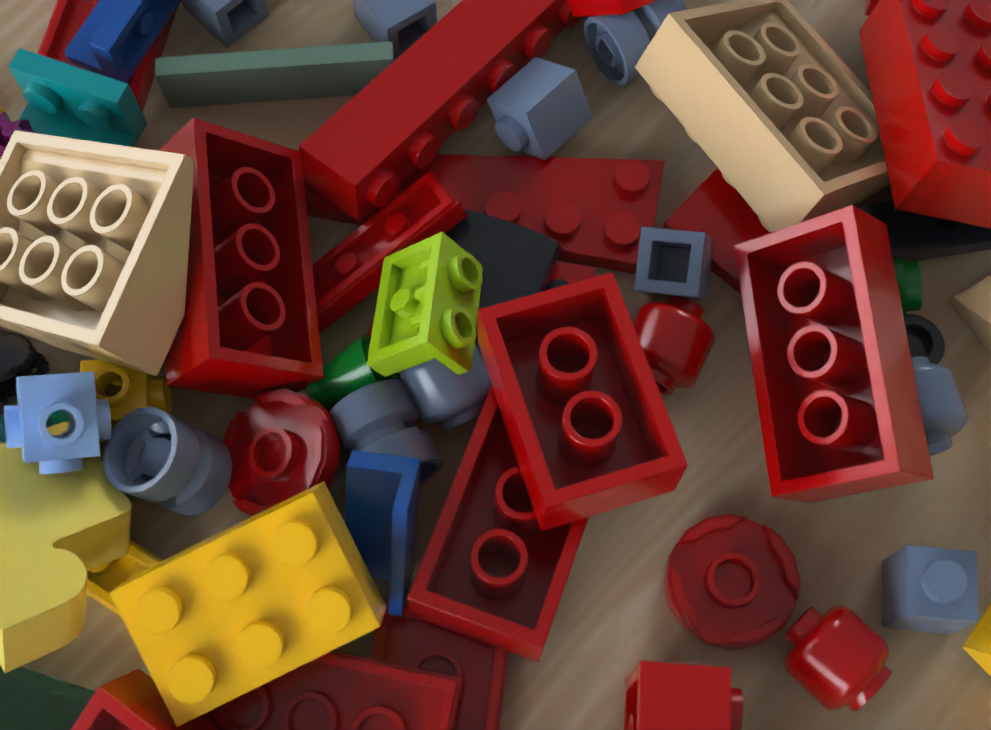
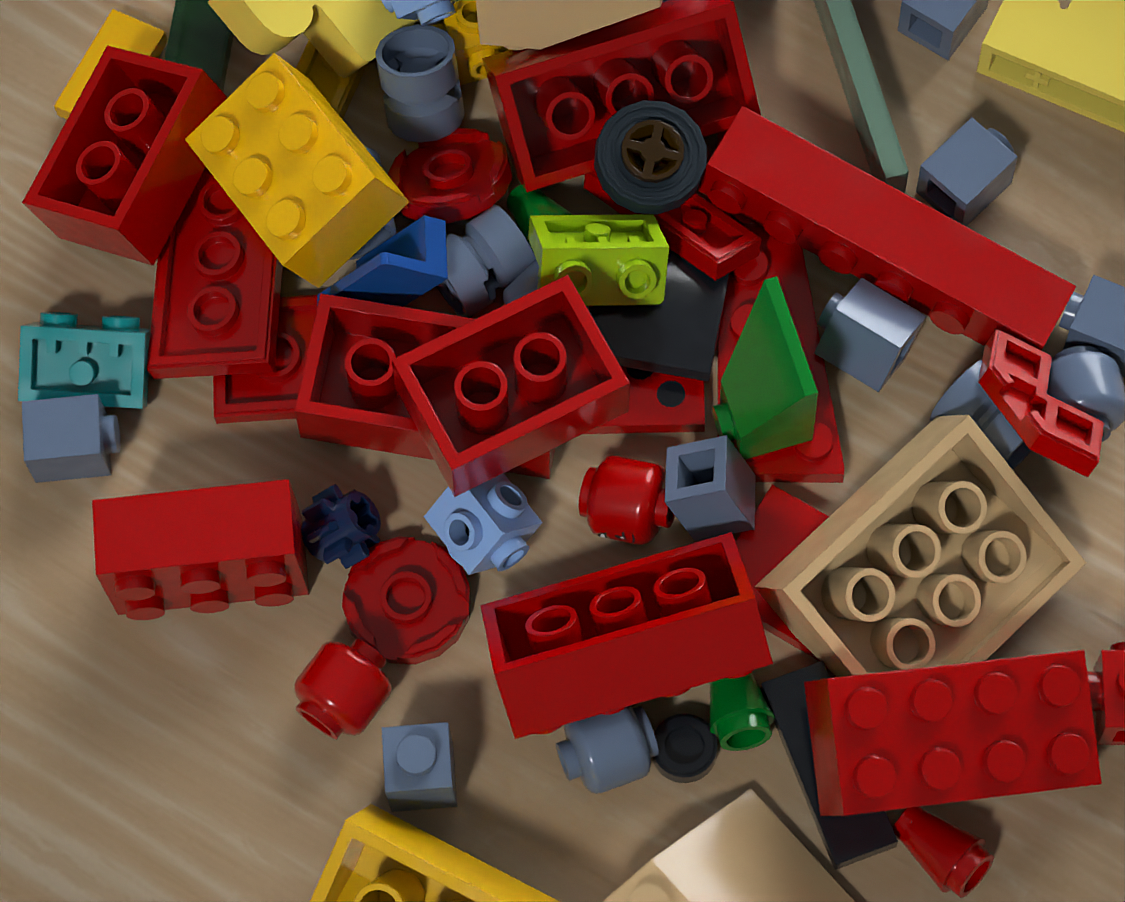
camera: 85 degrees right, 0 degrees up
(321, 218) = (660, 136): none -> black wheel
(587, 176) = (767, 385): none -> green slope
(656, 627) = (340, 526): none -> dark blue gear
(696, 495) = (485, 525): none -> light blue brick

